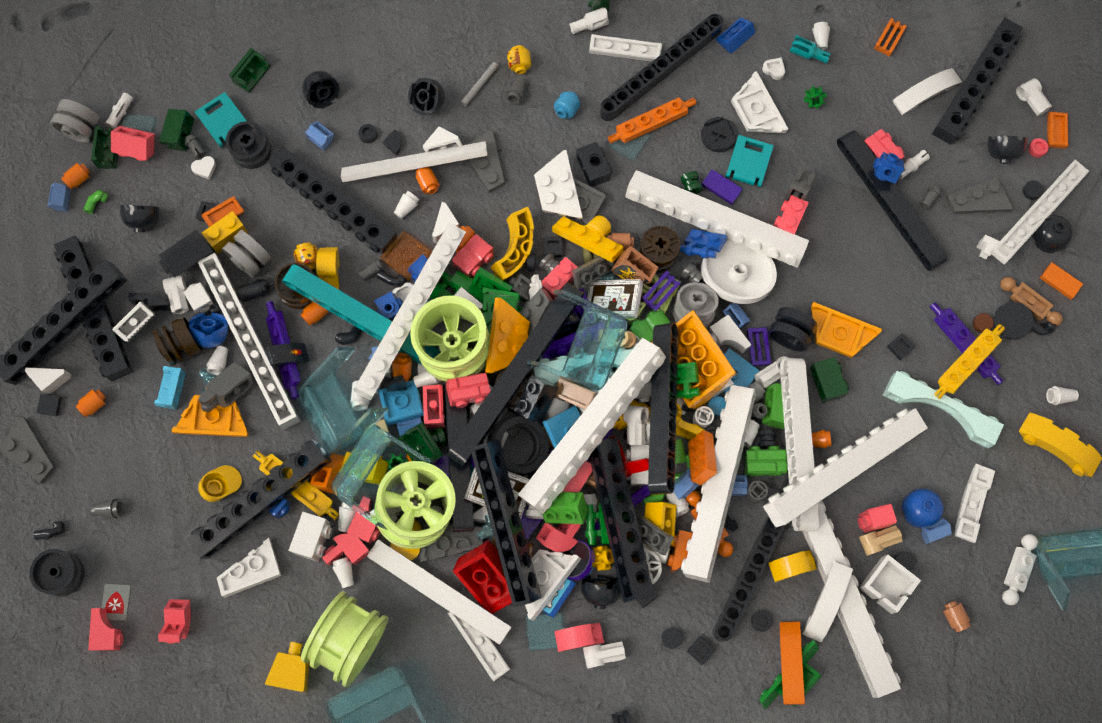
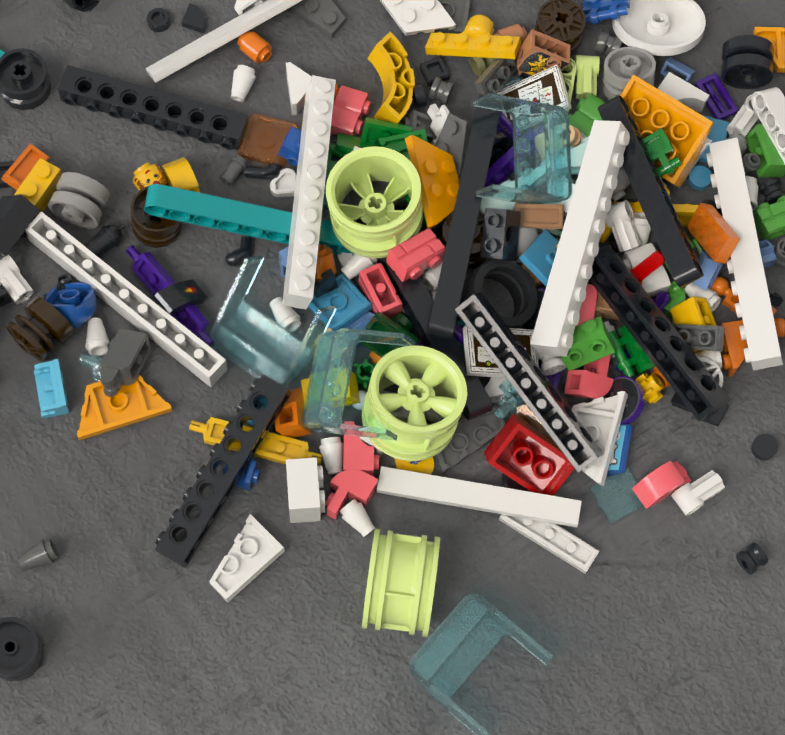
camera: 25 degrees left, 5 degrees down
(102, 634) = (102, 701): coral arch -> none
(116, 601) = (95, 660): light grey sticker -> none
(177, 621) = (183, 648): coral brick -> none
(198, 298) = (40, 274): white brick -> none
(219, 483) = (163, 474): yellow cap -> none
(289, 670) = (345, 651): yellow torso -> none
(313, 313) = (188, 240): orange brick -> none
(319, 135) = (102, 41): medium blue piece -> none
(384, 304) = (276, 193): blue brick -> none
(559, 277) = (462, 95): coral brick -> none
(601, 590) = (664, 424): black cylinder -> none
(671, 279) = (588, 56): dark purple tile -> none
(702, 420) = (694, 196): white wheel -> none

